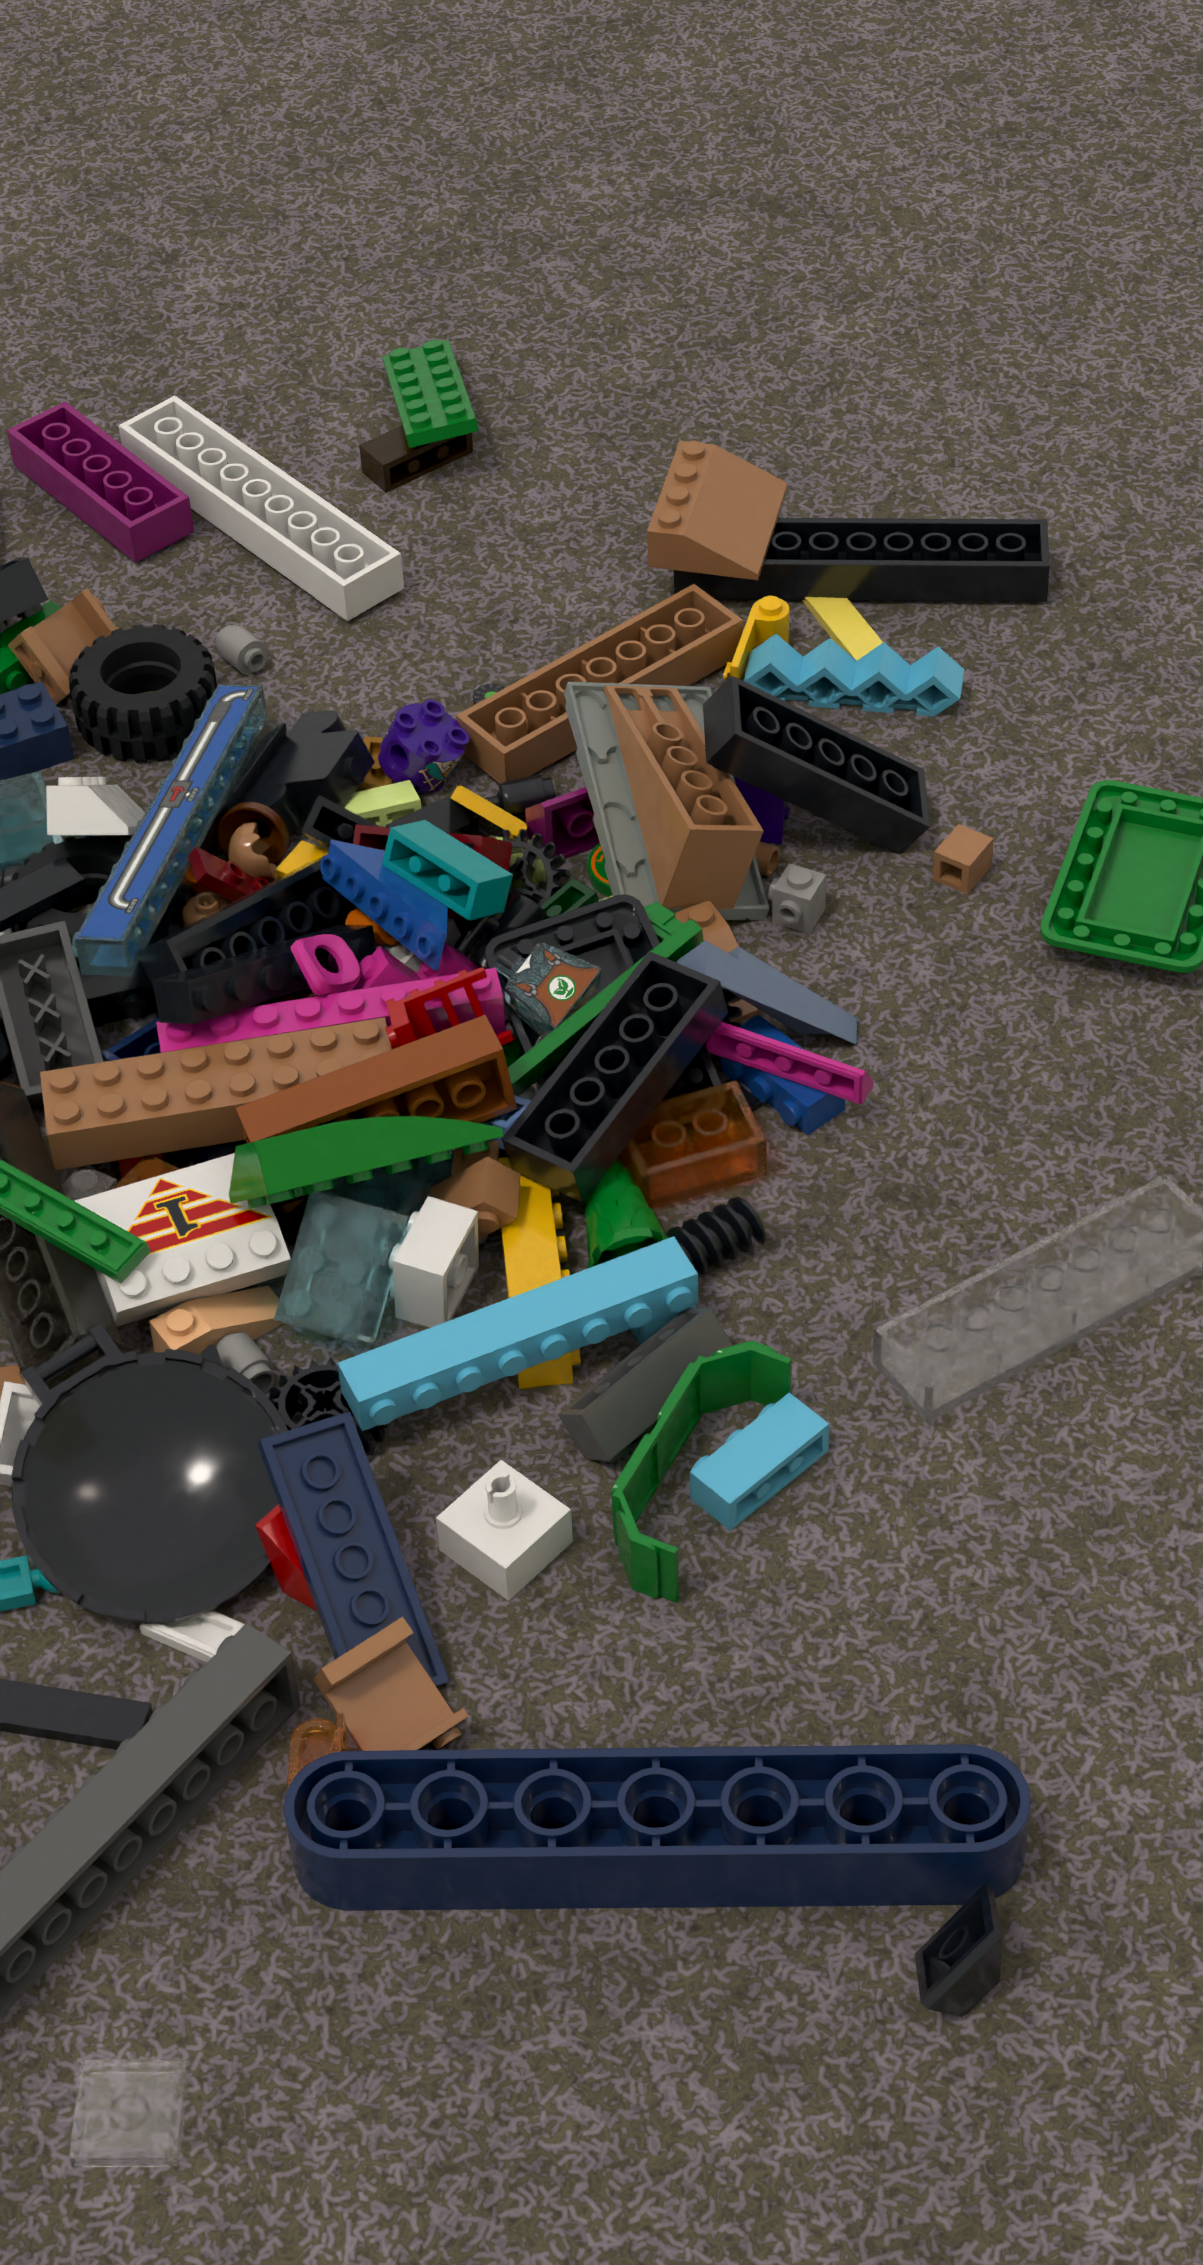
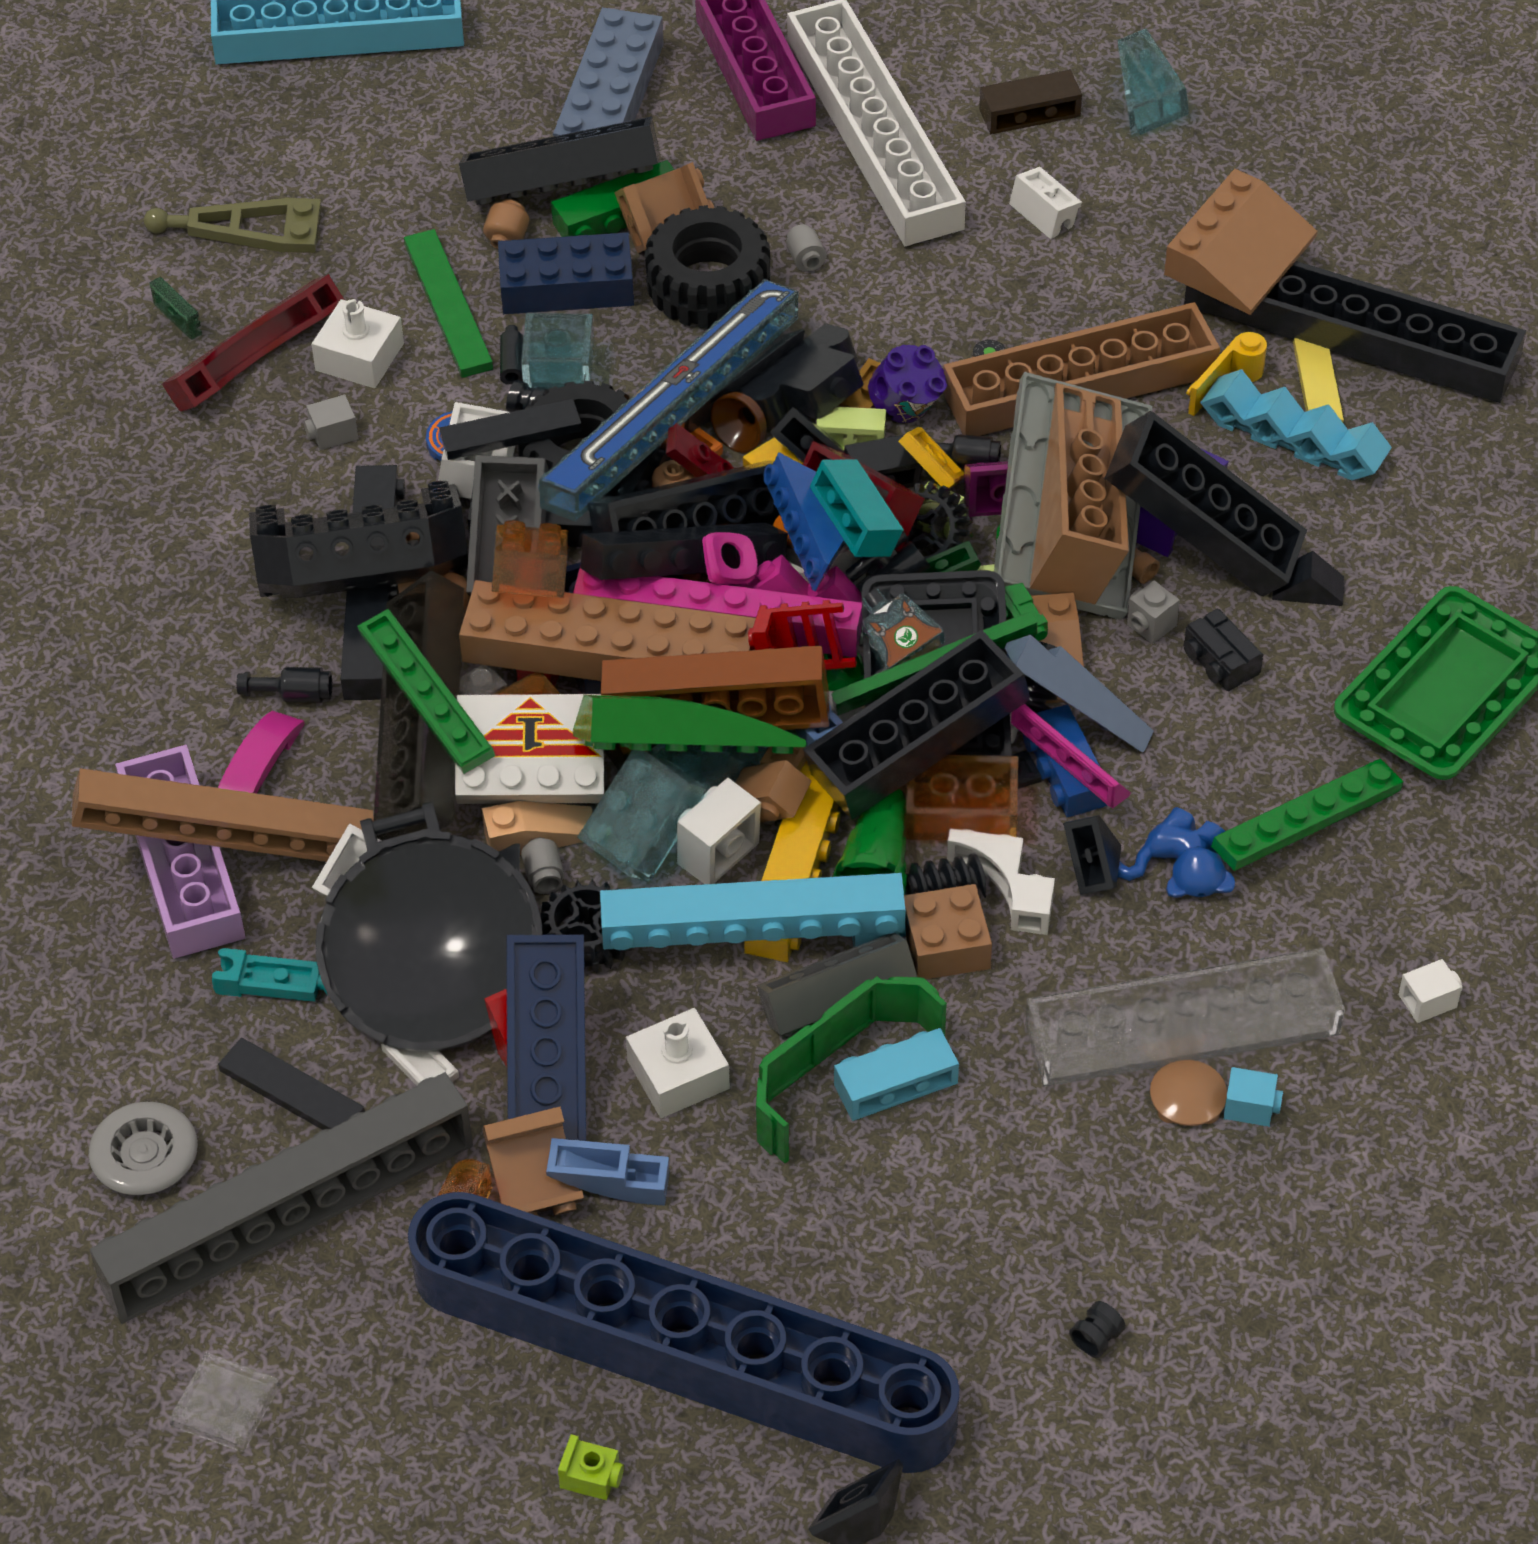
camera: 20 degrees right, 5 degrees up
(90, 808) = (614, 362): white slope -> none
(96, 1030) = (530, 559): none -> clear orange brick
(248, 850) = (726, 437): medium nougat hair -> none
(429, 393) = (1060, 54): green plate -> none
(479, 538) = (1044, 201): none -> white hinge
(483, 1675) = (609, 1170): none -> medium blue slope
(535, 398) = (1150, 84): none -> clear light blue wedge
(620, 2030) = (587, 1480): none -> lime brick
(748, 1288) = (947, 932): none -> medium nougat brick
(810, 1227) = (1001, 857): none -> white arch
(862, 1159) = (1093, 854): none -> black slope
(891, 915) = (1222, 650): none -> black brick
(944, 815) = (1313, 582): none -> black slope
(963, 858) = (1306, 618): medium nougat brick -> none
(978, 1137) = (1197, 865): none -> blue animal
(1066, 1050) = (1307, 814): none -> green plate
(1088, 1377) = (1188, 1093): none -> medium nougat dish
(1125, 1655) = (1097, 1329): none -> black wheel
(1161, 1357) = (1252, 1097): none -> medium azure brick

